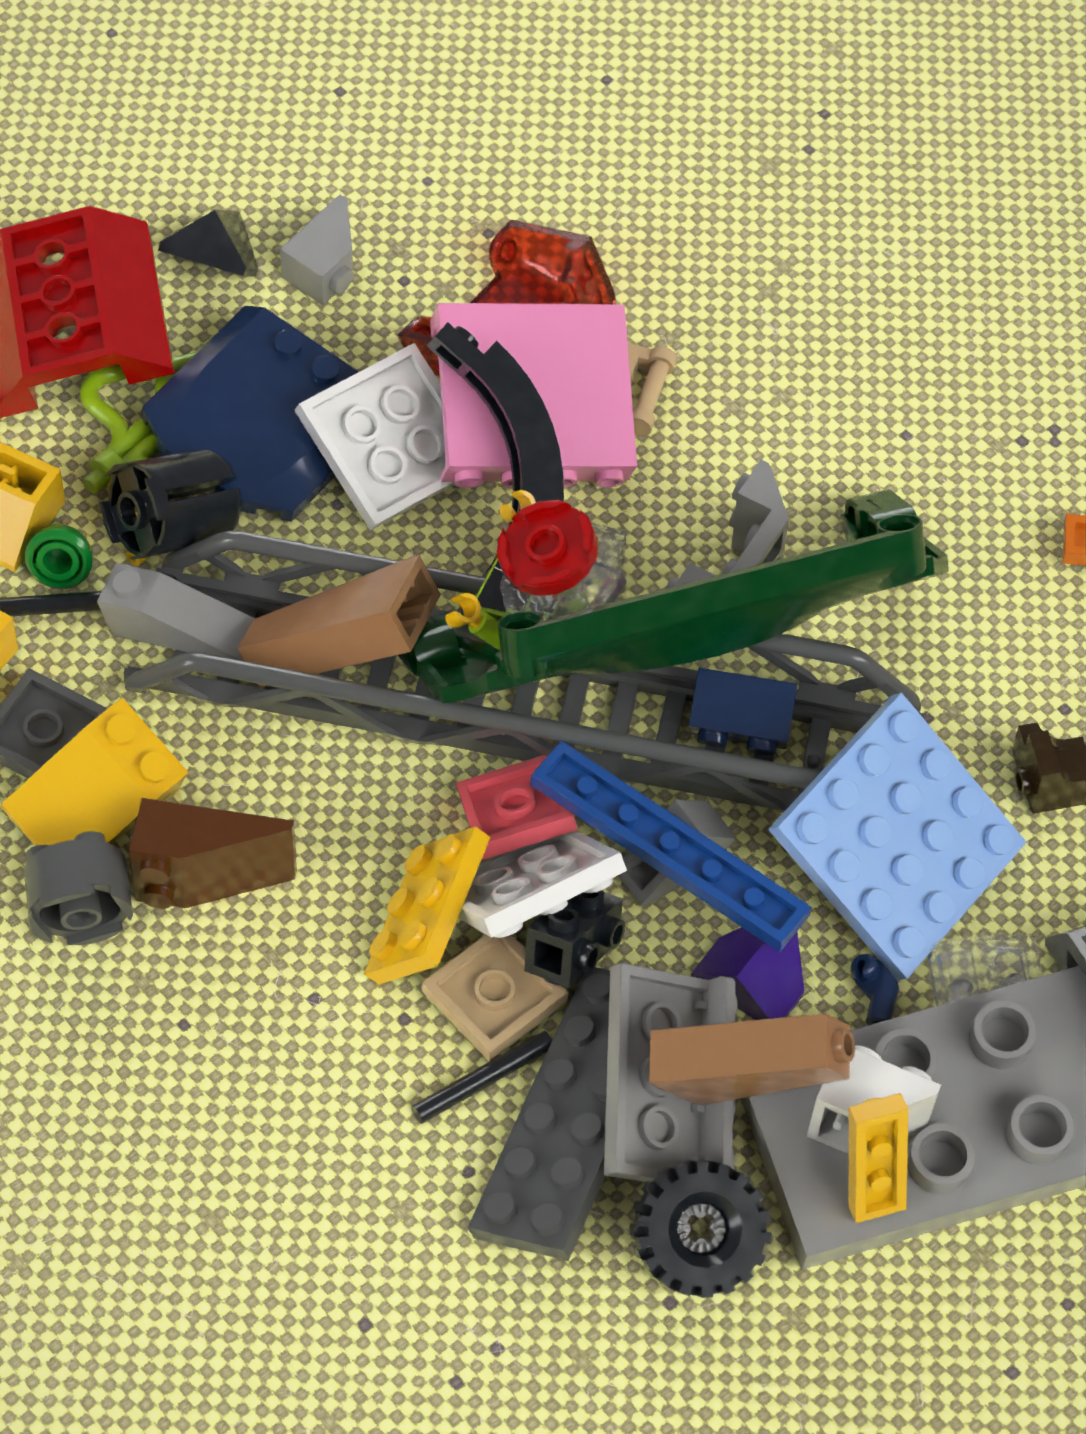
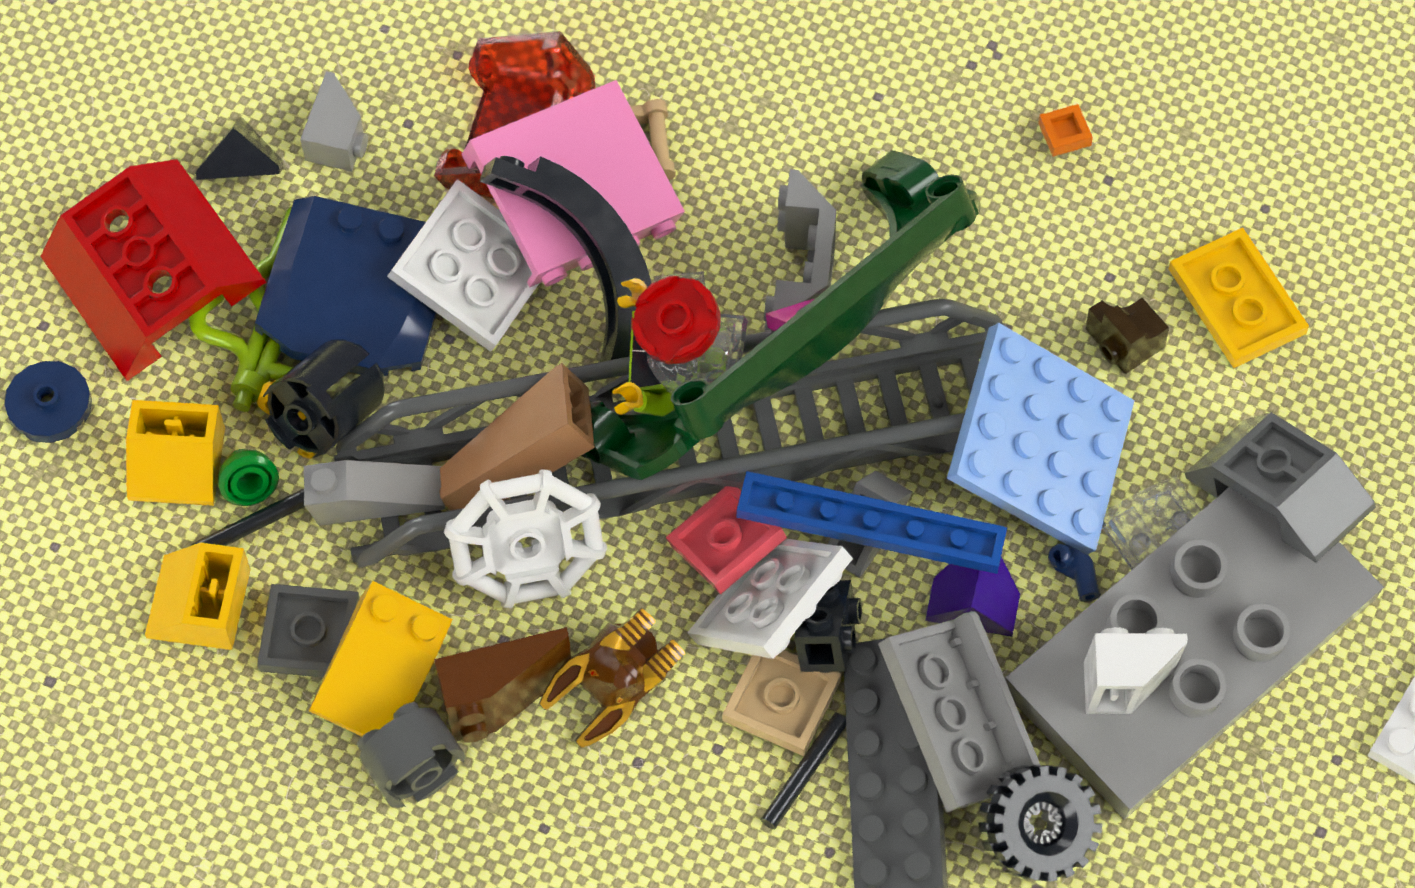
camera: 20 degrees left, 5 degrees up
(309, 697) = (523, 519): none -> white plate
(332, 893) = (616, 672): none -> reddish brown piece
(426, 906) = (702, 627): yellow plate -> none
(742, 711) = (868, 384): dark blue brick -> none
(750, 1057) = (1032, 672): medium nougat slope -> none
(878, 1157) = (1161, 710): yellow plate -> none

